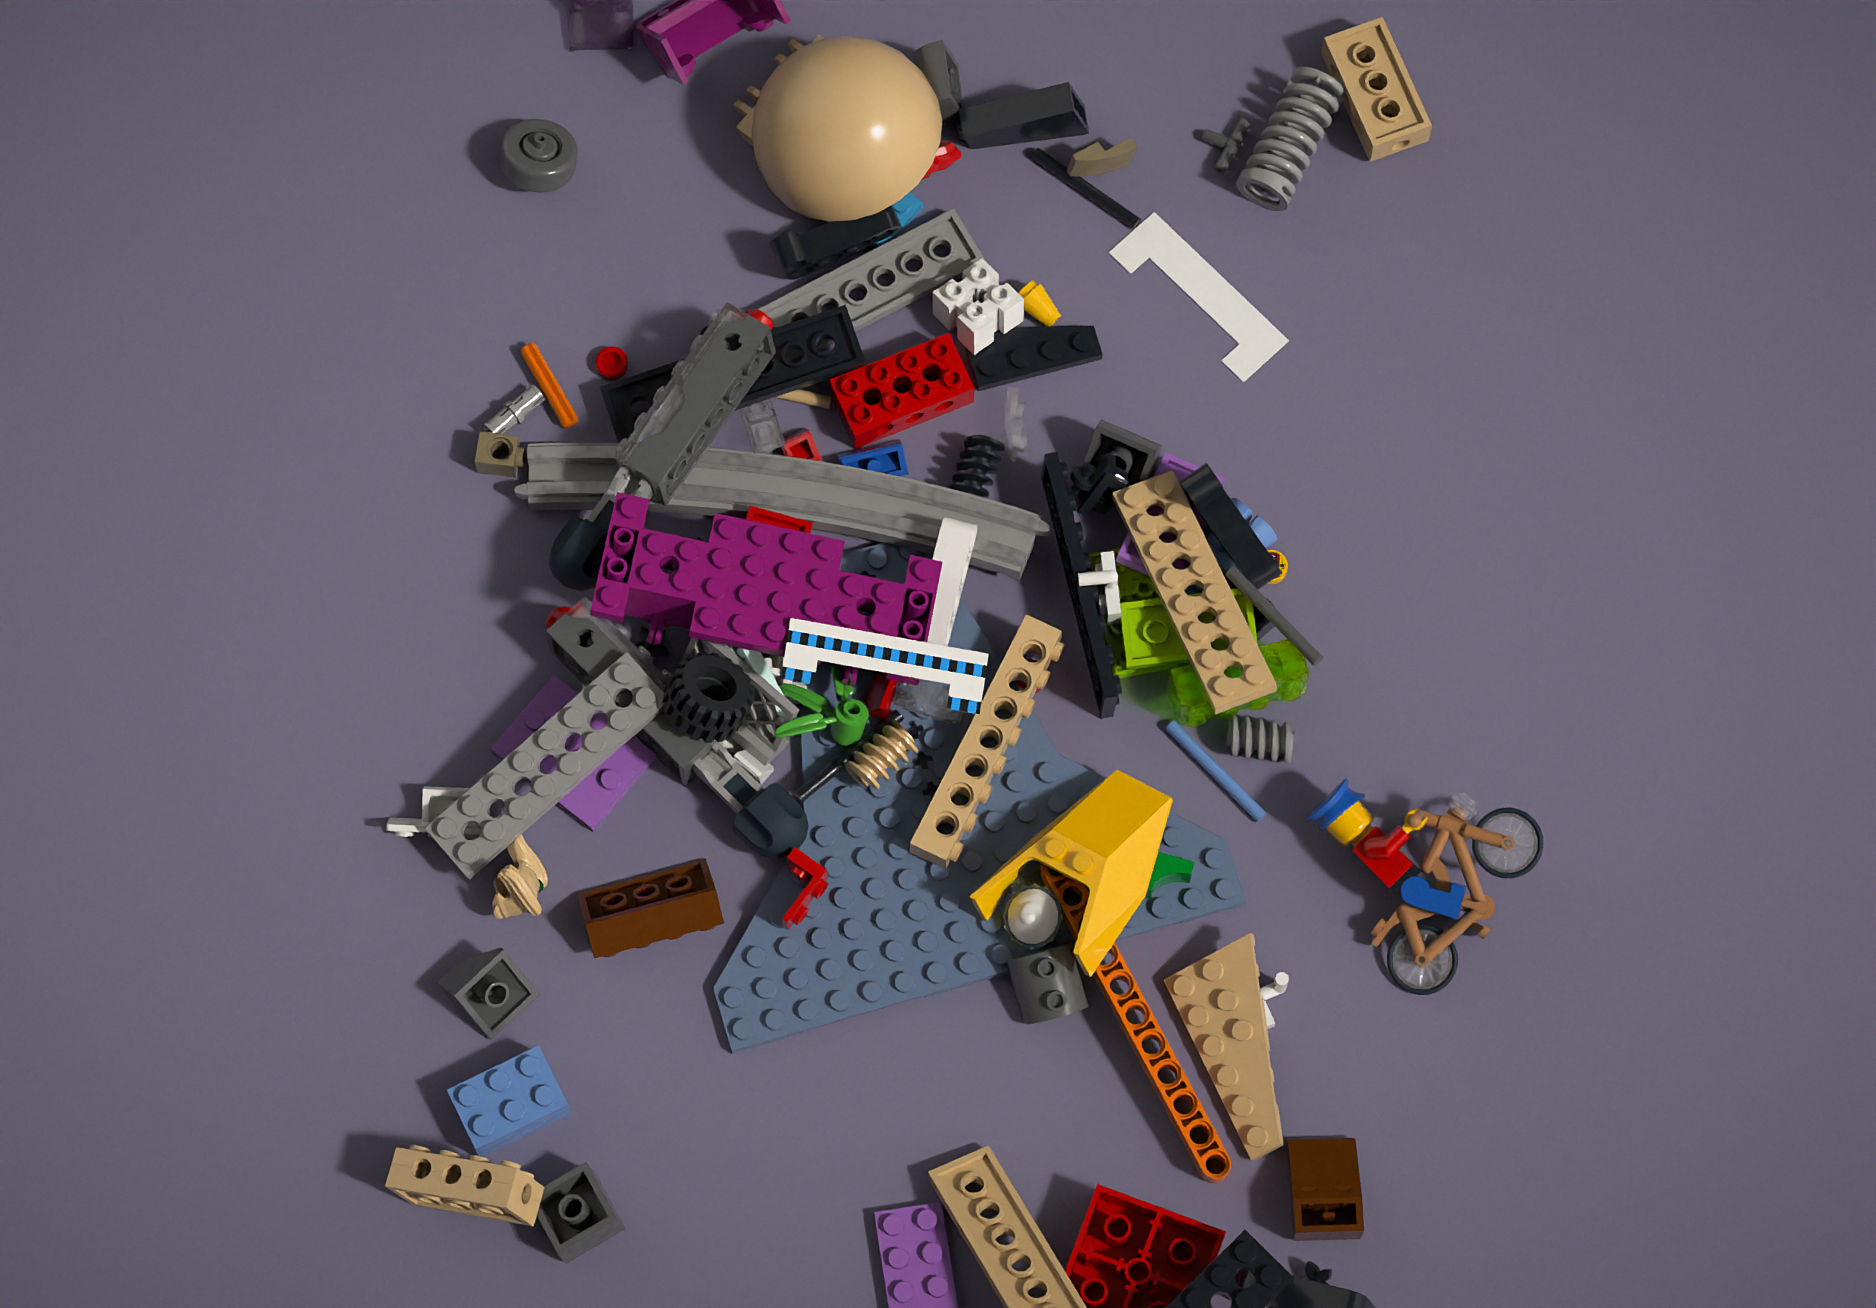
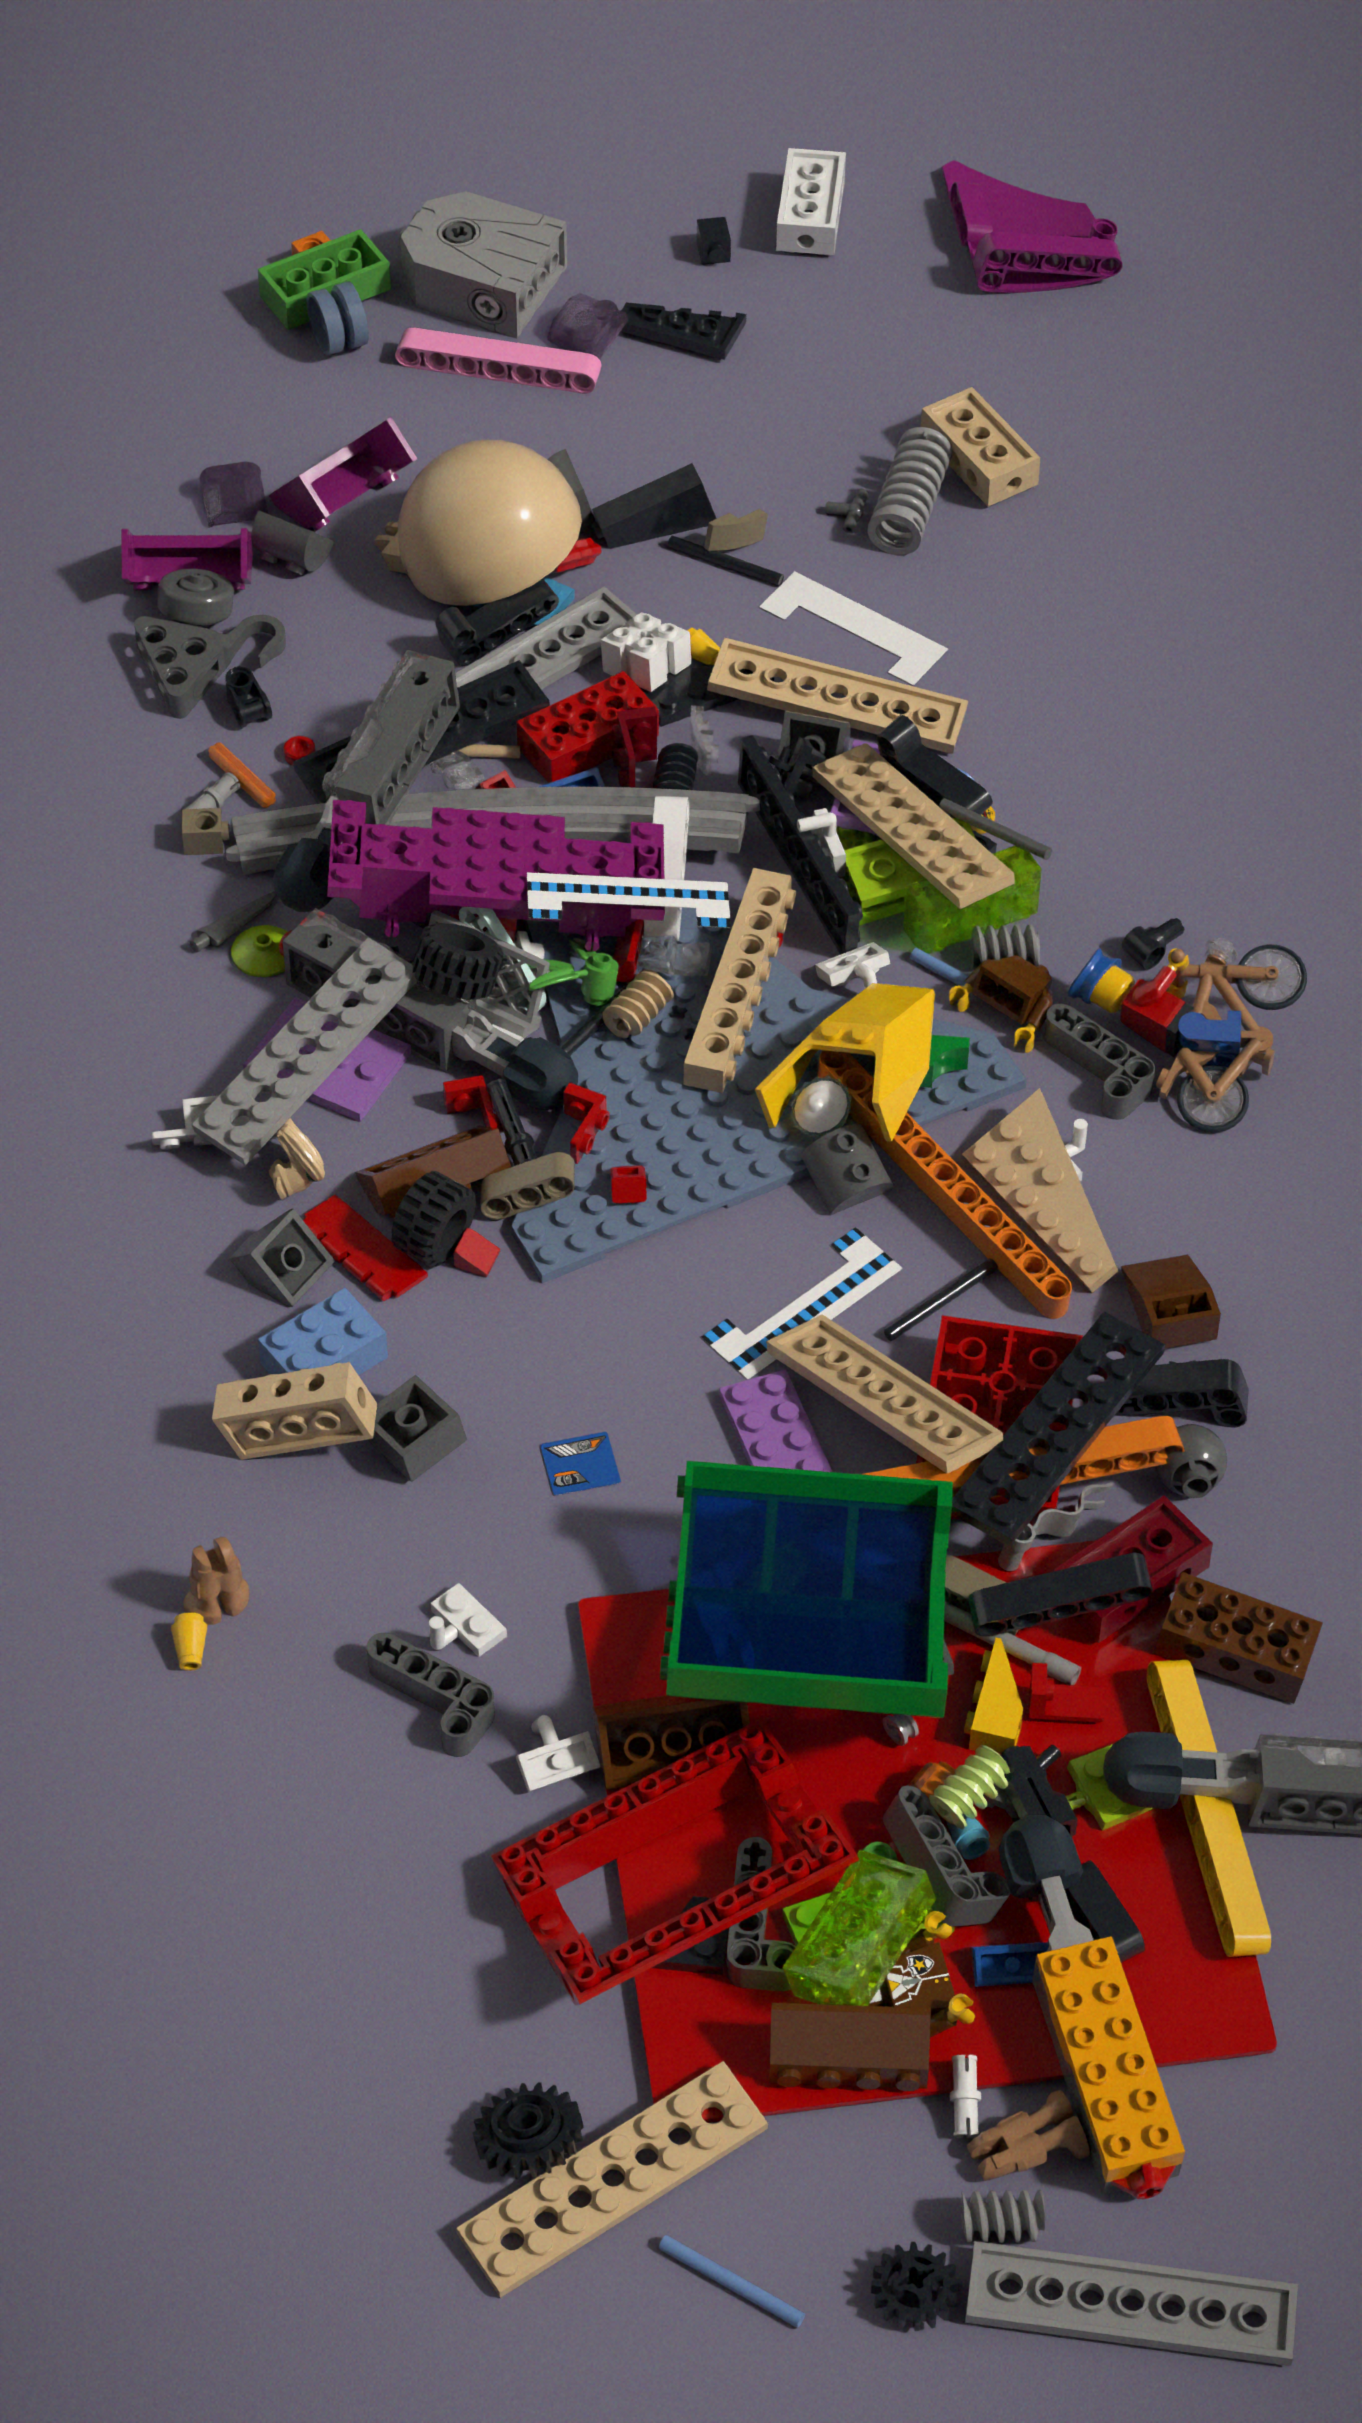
camera: 10 degrees left, 20 degrees down
(504, 571) = (223, 928): none -> dark grey bar
(524, 619) = (258, 952): none -> lime dish
(525, 91) = (153, 556): none -> magenta windscreen
(549, 225) = (197, 655): none -> dark grey piece
(569, 295) = (246, 696): none -> black piece
(575, 989) = (363, 1249): none -> red windscreen
(636, 980) = (433, 1218): none -> black tyre
(648, 96) = (289, 543): none -> dark grey brick
(674, 1013) = (475, 1253): none -> red slope
(695, 827) = (470, 1094): none -> red bracket
(725, 841) = (517, 1142): none -> black pin
(728, 1268) = (580, 1463): none -> blue sticker
(735, 952) = (527, 1185): none -> dark tan beam
(832, 964) = (628, 1184): none -> red slope
(944, 417) = (635, 741): none -> dark red bracket
(992, 1126) = (863, 1273): none -> white sticker
(1106, 734) = (858, 962): none -> white plate
(1106, 1145) = (940, 1299): none -> black bar
(1162, 415) = (832, 679): none -> tan plate
(1255, 795) = (1012, 988): none -> reddish brown torso
(1318, 887) = (1125, 1071): none -> dark grey beam
(1403, 760) = (1149, 944): none -> black axle

